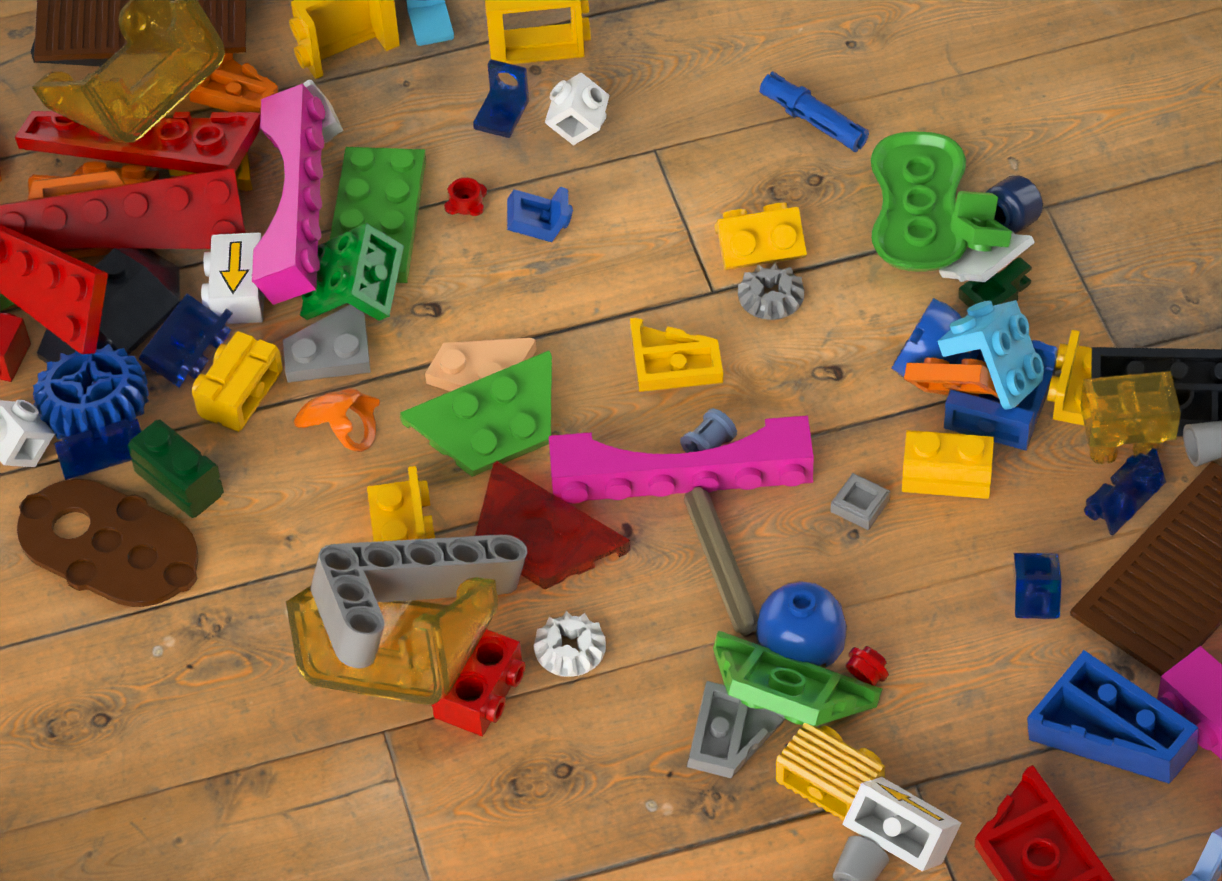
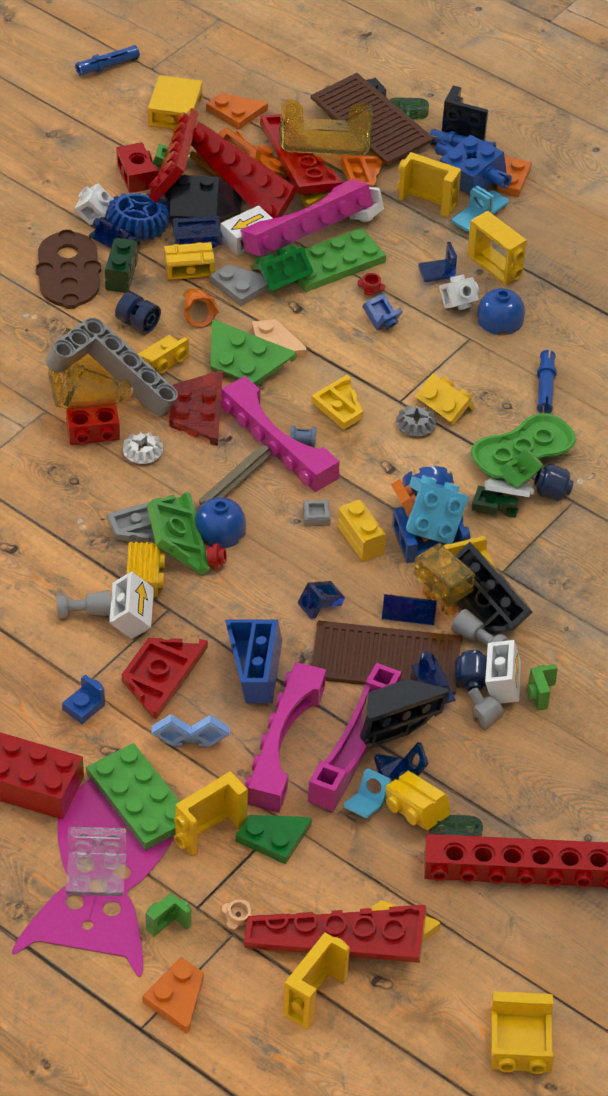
camera: 50 degrees right, 5 degrees down
(281, 505) = (138, 312): none -> dark blue wheel
(643, 86) = (501, 311): none -> blue cylinder

